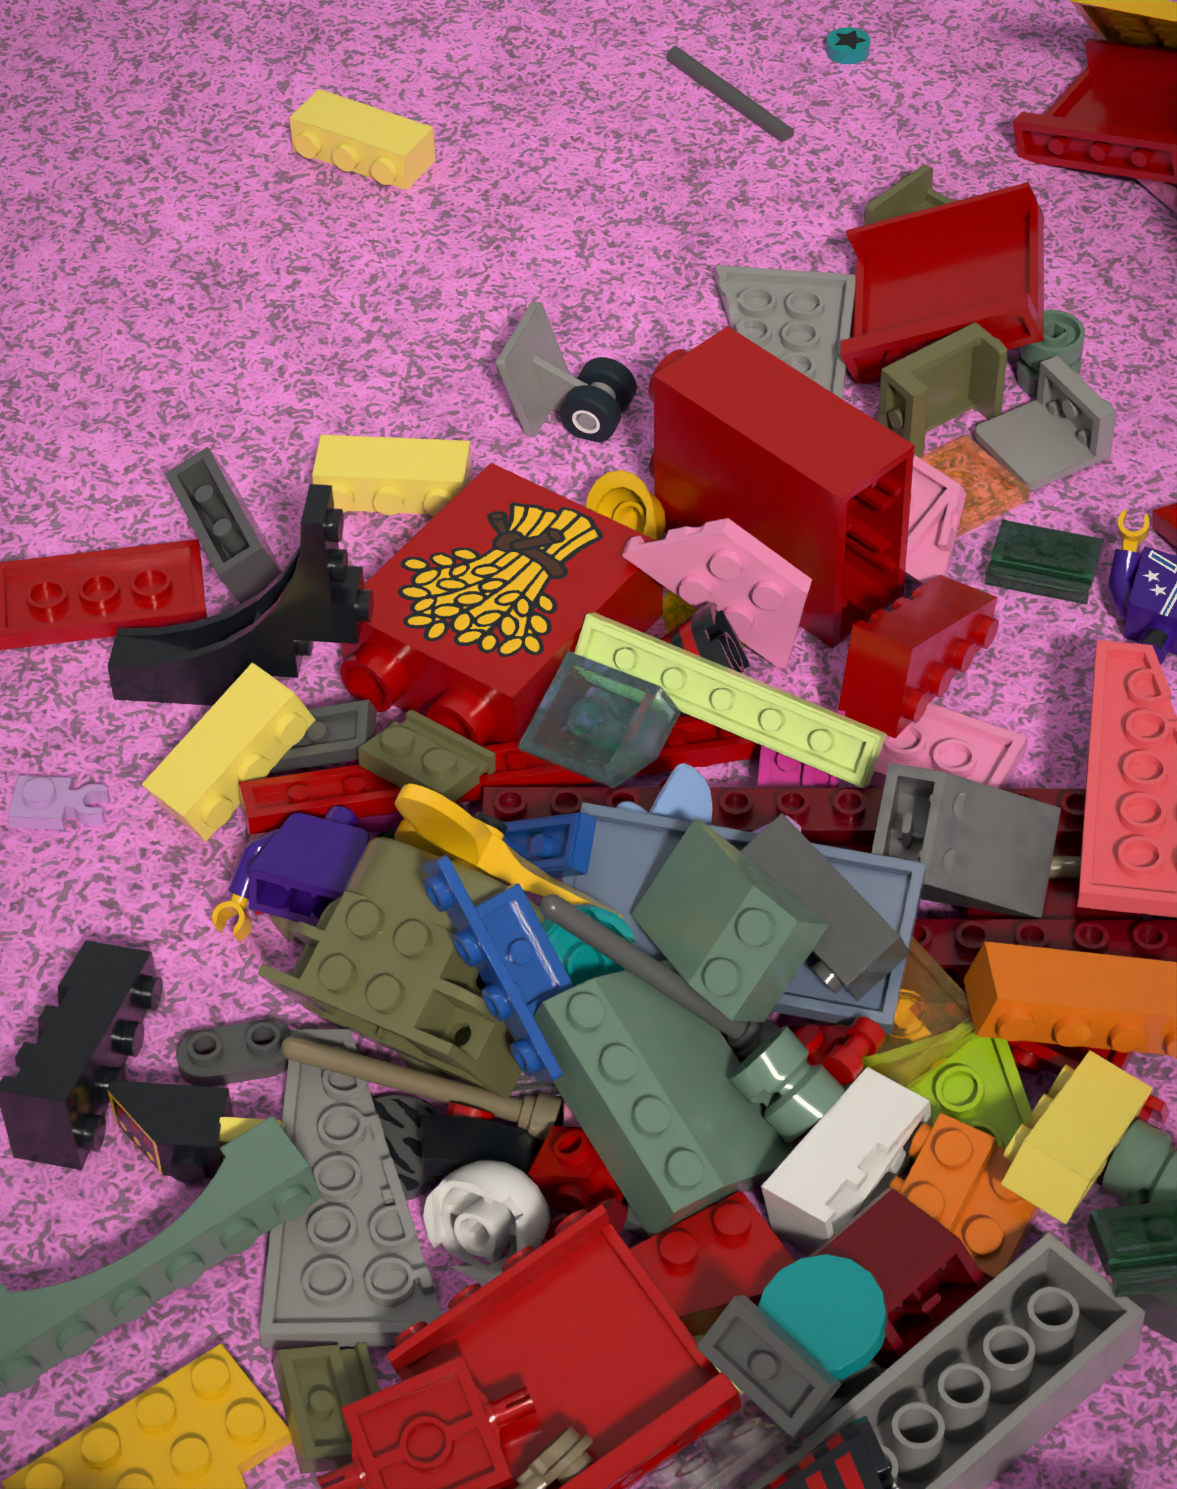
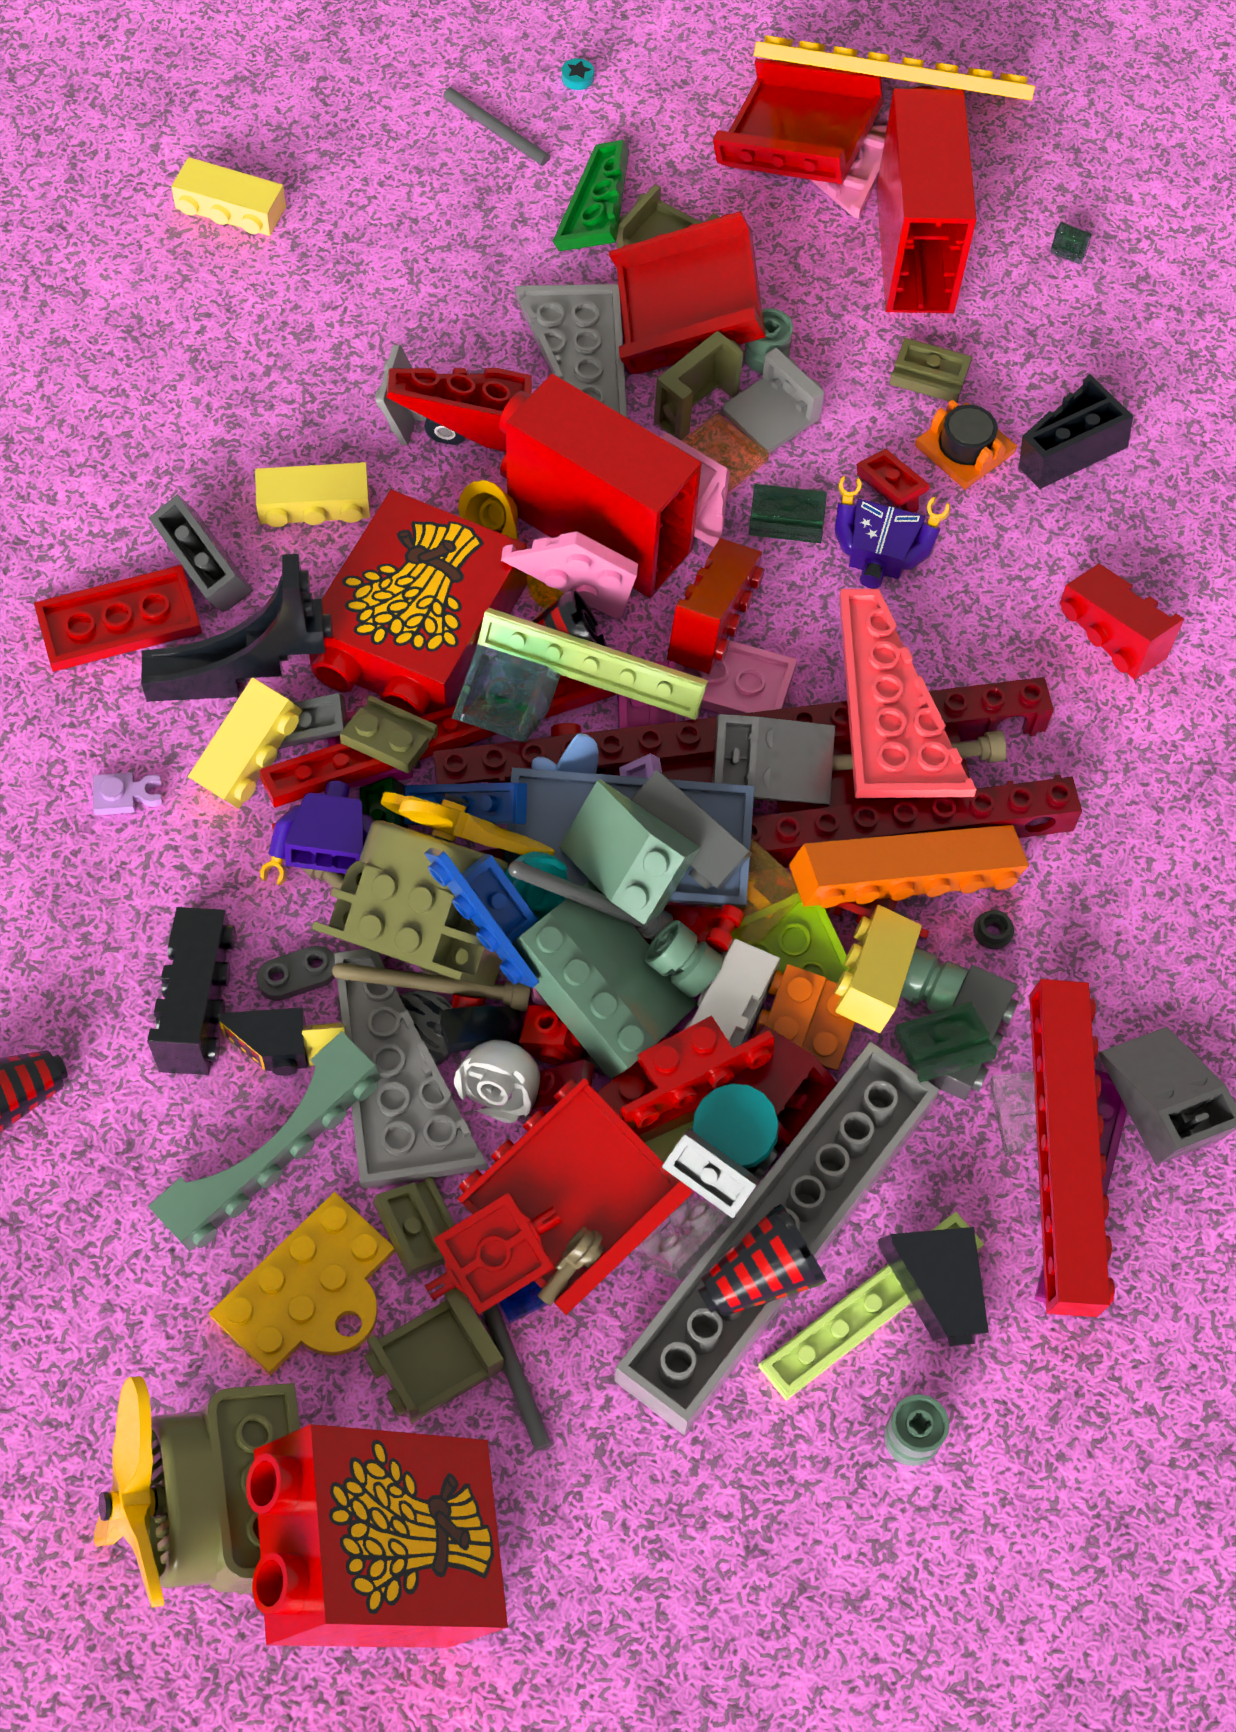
camera: 15 degrees left, 15 degrees up
(597, 377) = (460, 400): none -> red wedge
(769, 1223) = (690, 1065): none -> red bracket
(844, 181) = (597, 200): none -> green wing

